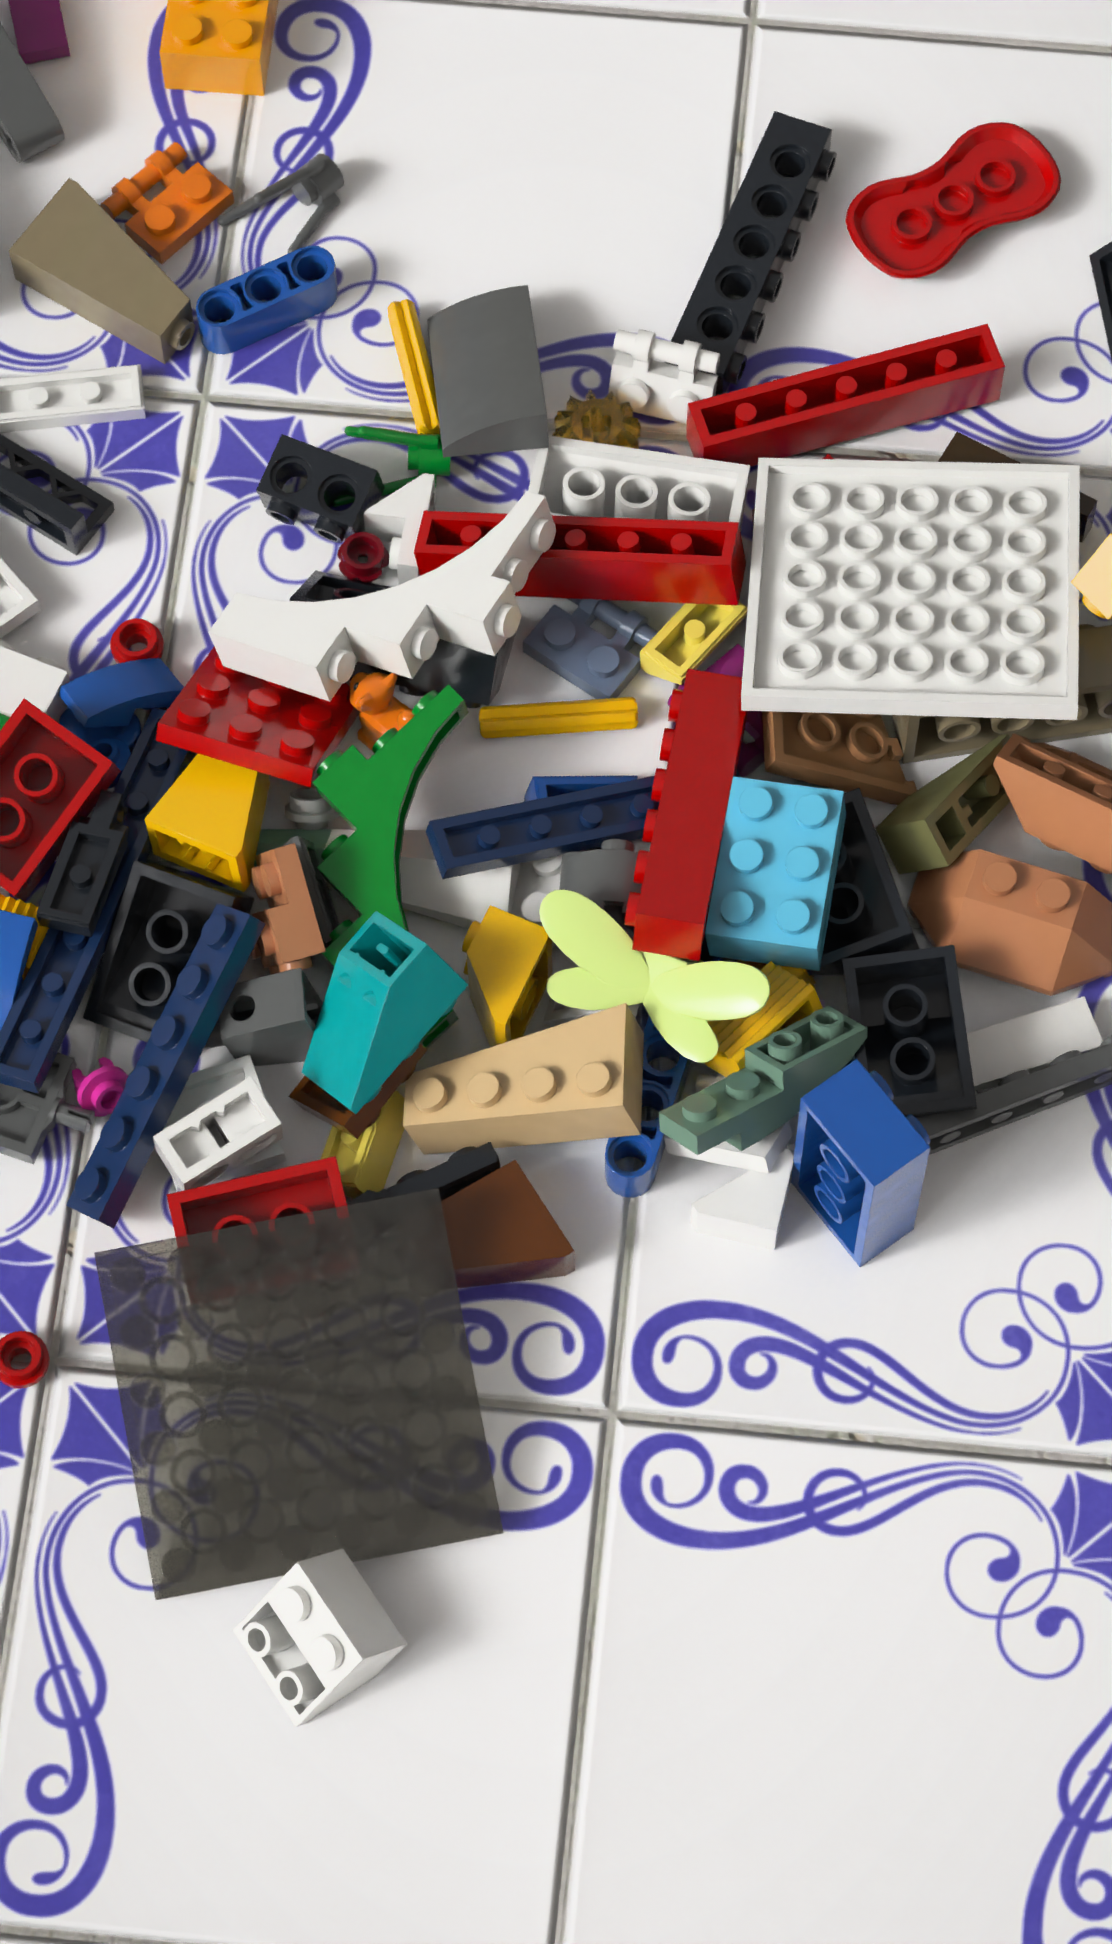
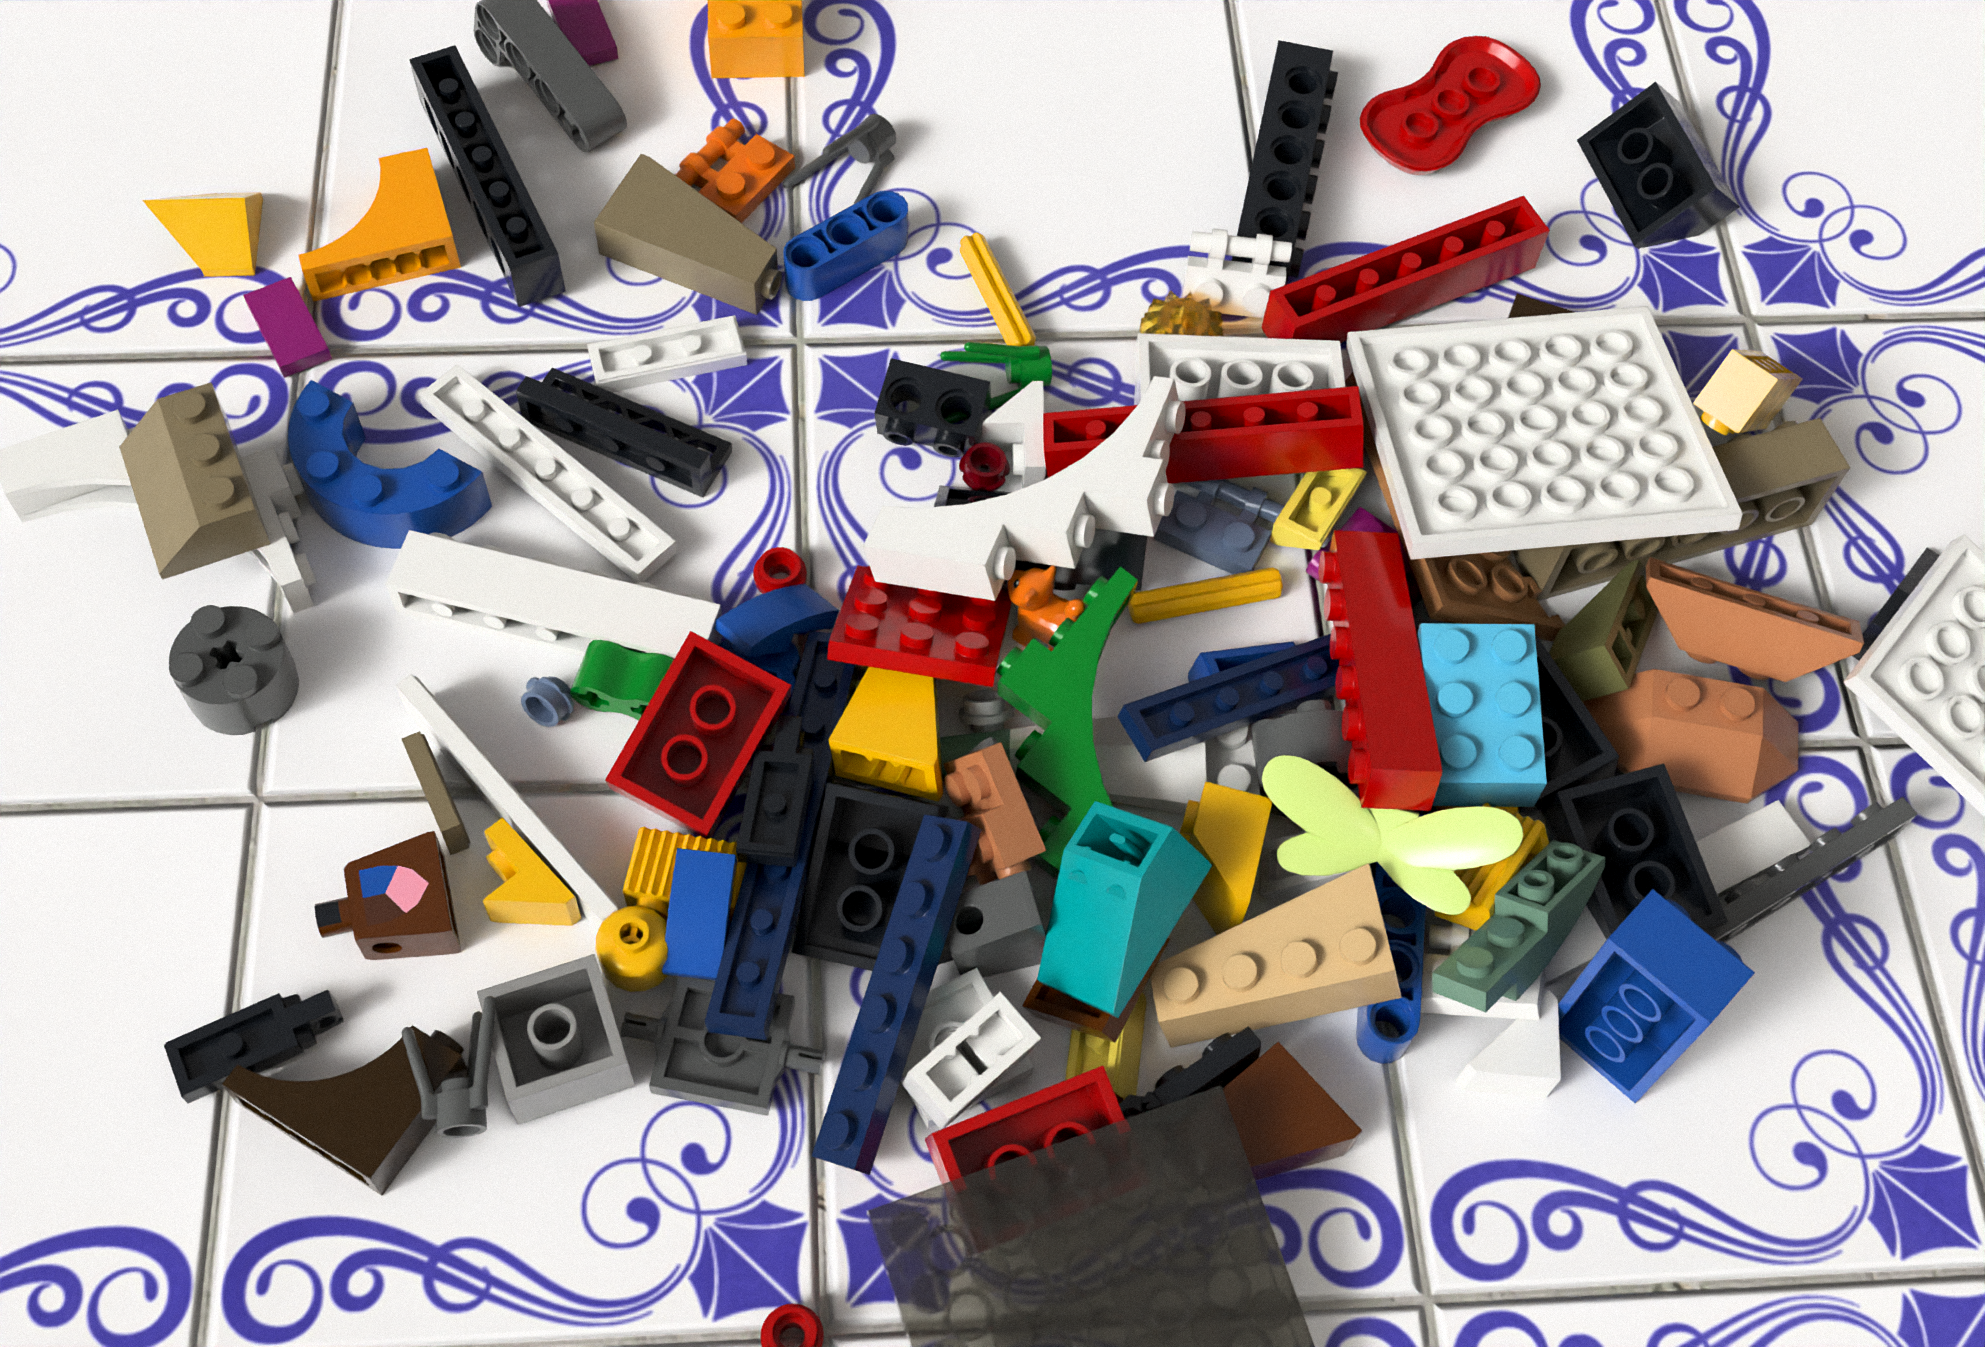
camera: 15 degrees left, 5 degrees down
(100, 1088) = (829, 1026): dark pink plate -> none
(488, 375) = (1075, 287): dark grey slope -> none

